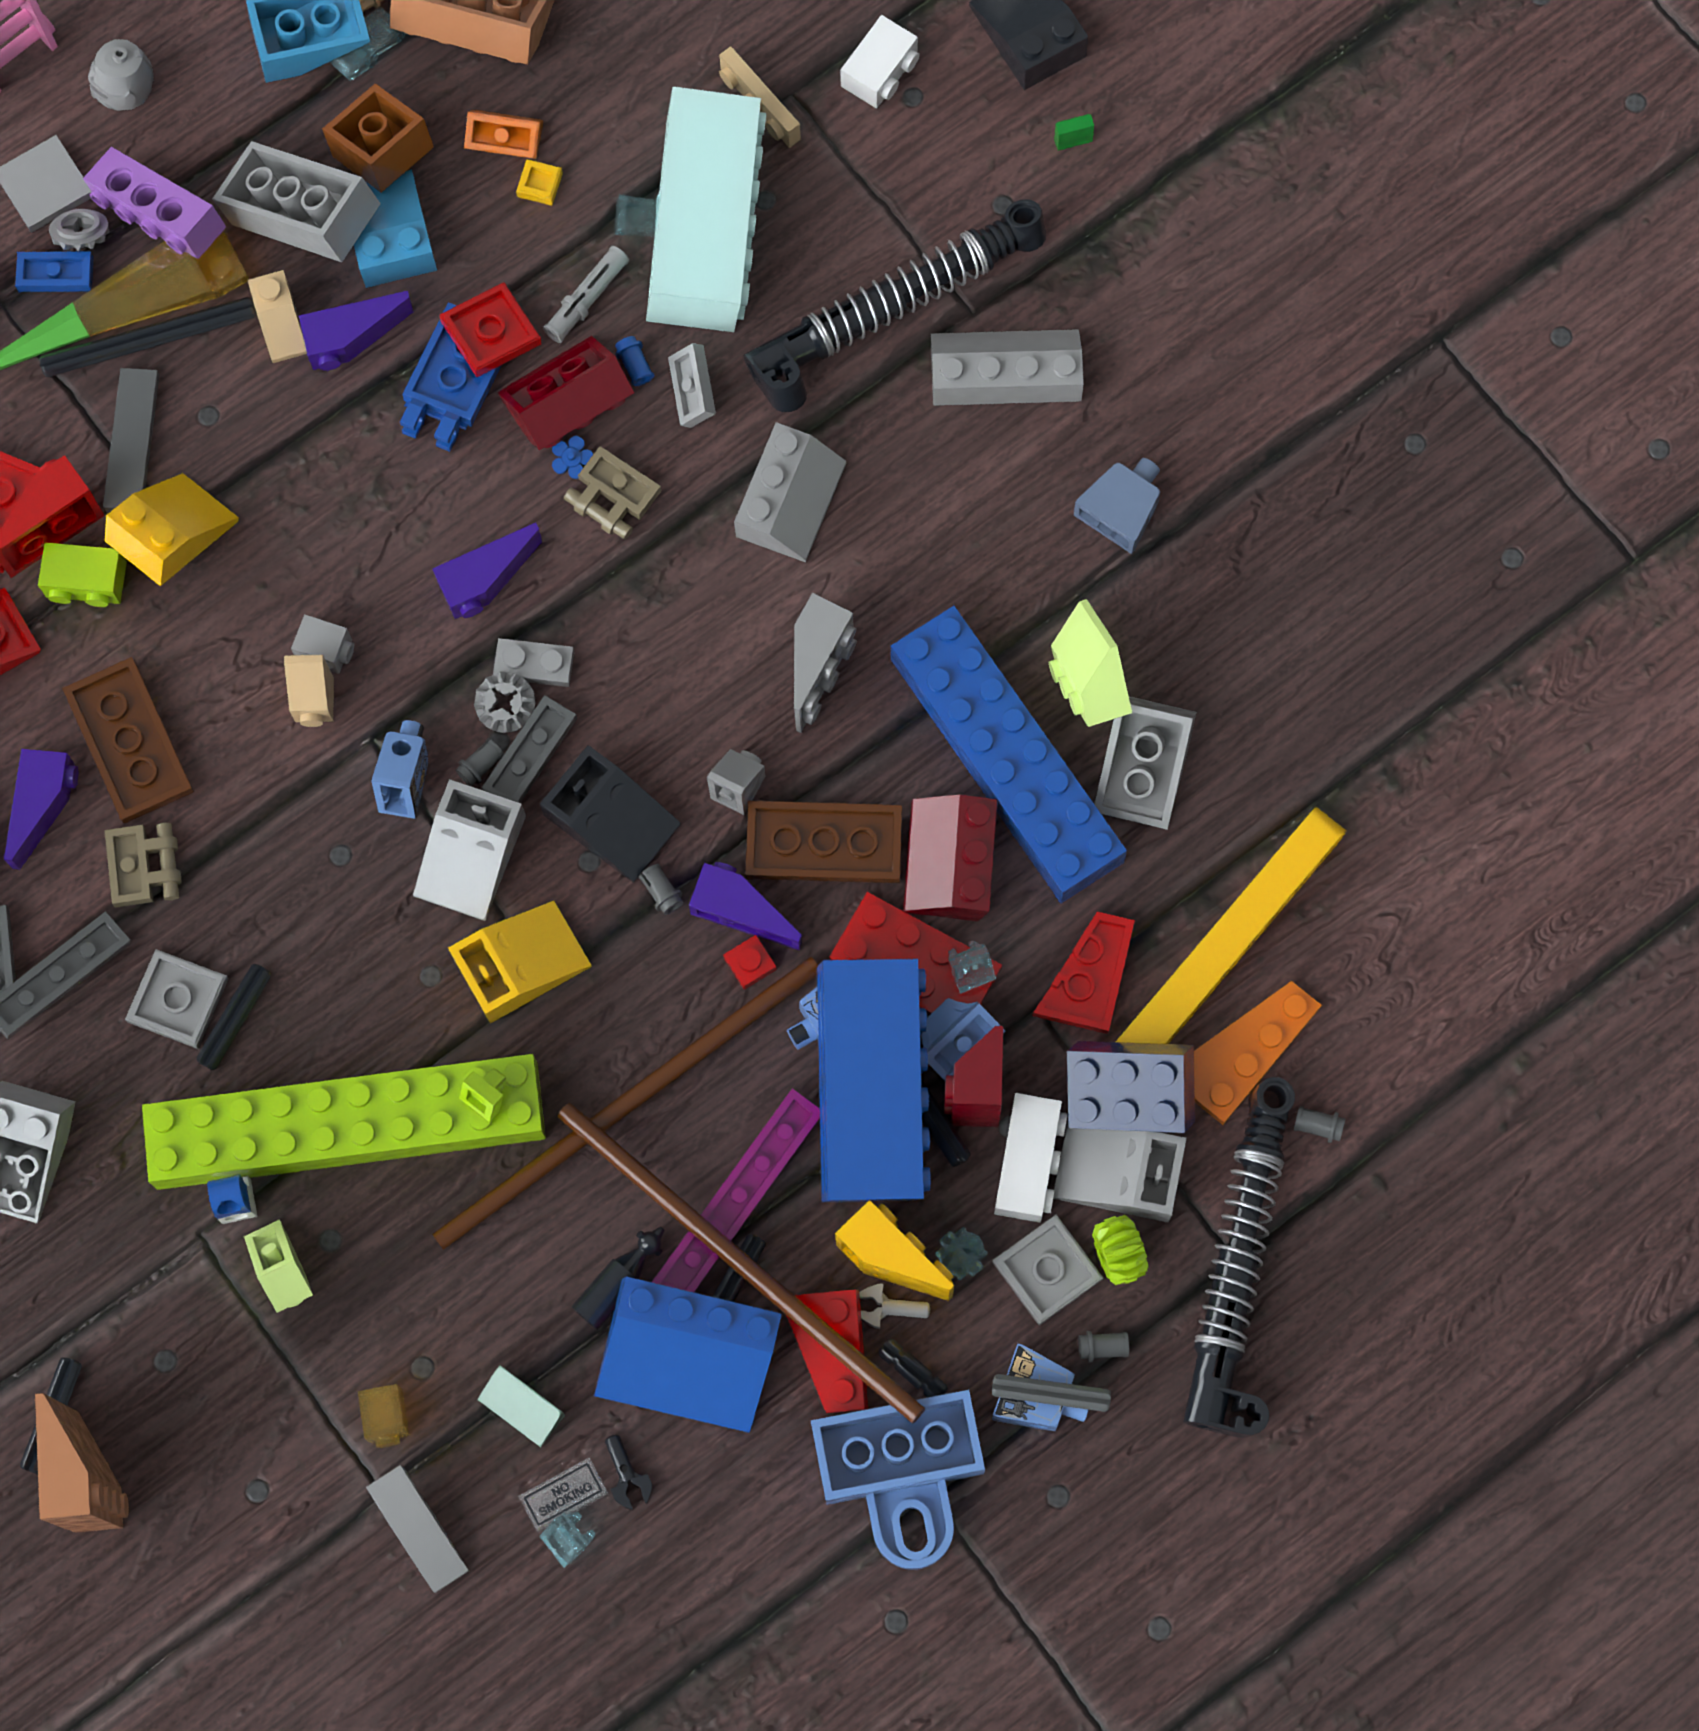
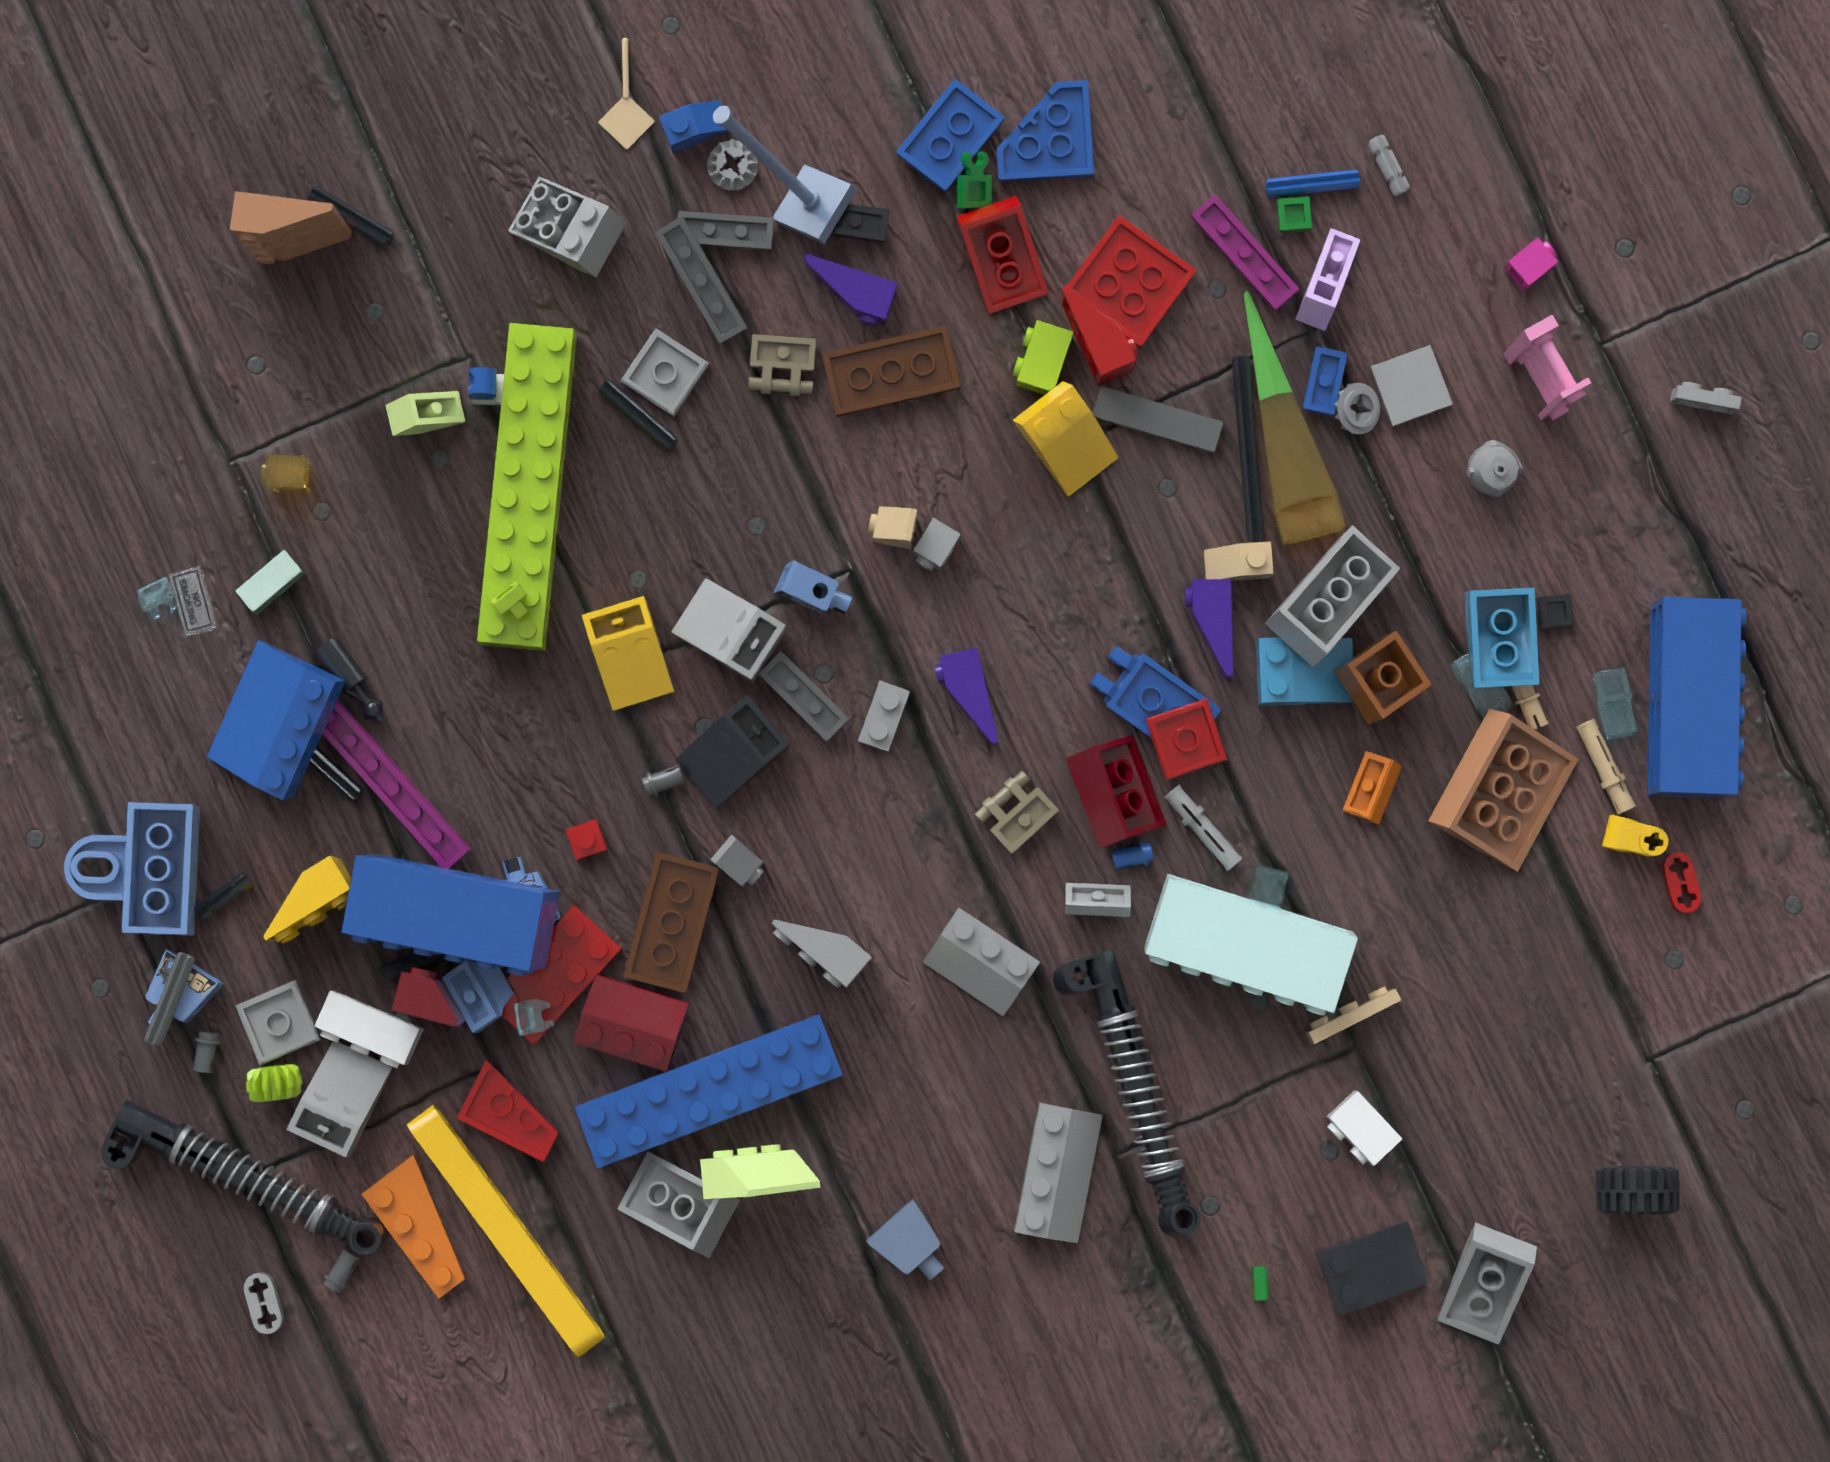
camera: 100 degrees right, 10 degrees up
(153, 203) = (1327, 507): medium lavender brick -> none
(417, 1528) = (192, 482): light grey slope -> none
(479, 762) = (805, 654): dark grey pin -> none
(522, 703) = (867, 688): light grey gear -> none
(539, 182) = (1318, 809): yellow tile -> none
(571, 457) = (1058, 785): blue plant -> none
(626, 1474) = (197, 653): black bar -> none
(627, 1102) = (493, 717): reddish brown piece -> none
(733, 902) = (635, 838): dark purple slope -> none
(742, 1263) = (333, 776): reddish brown piece -> none
(836, 1384) = (257, 836): red wing -> none
(890, 1307) = (278, 888): light grey bar -> none
(962, 1253) = (303, 955): clear light blue gear -> none
(1131, 1086) = (398, 1123): brick -> none
(1375, 1198) = (256, 1305): none -> light grey beam

